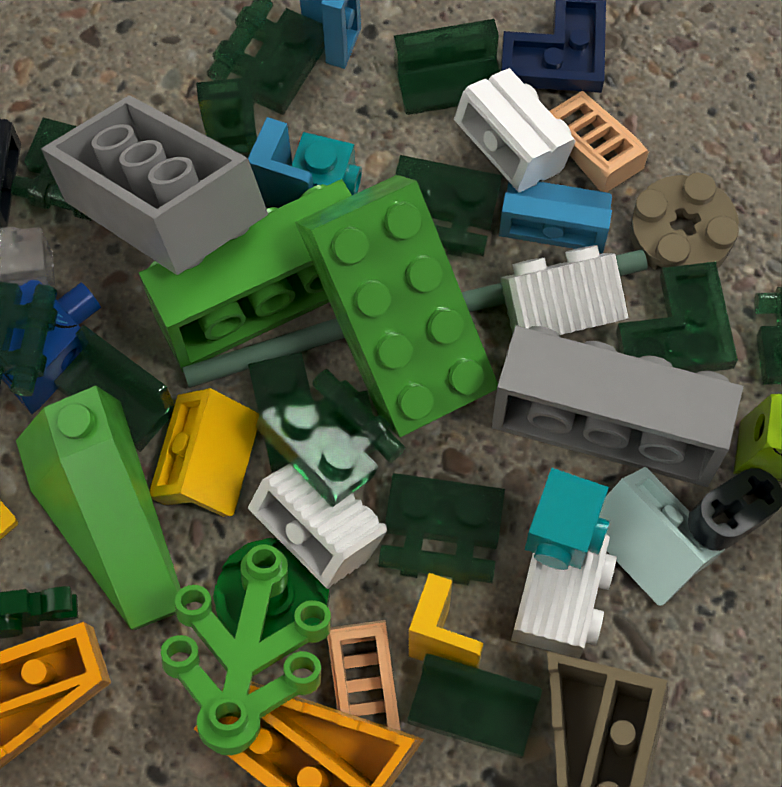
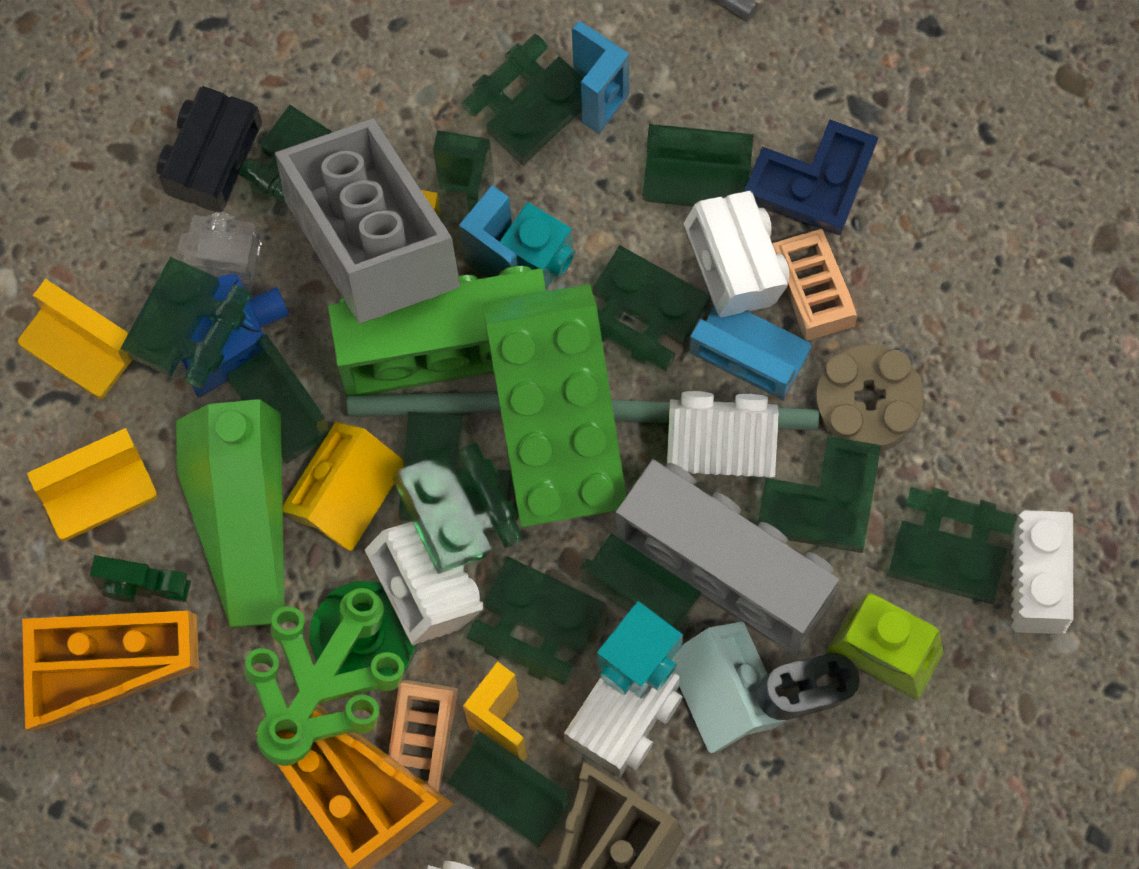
camera: 20 degrees right, 5 degrees up
(524, 458) = (630, 576): none -> clear green panel

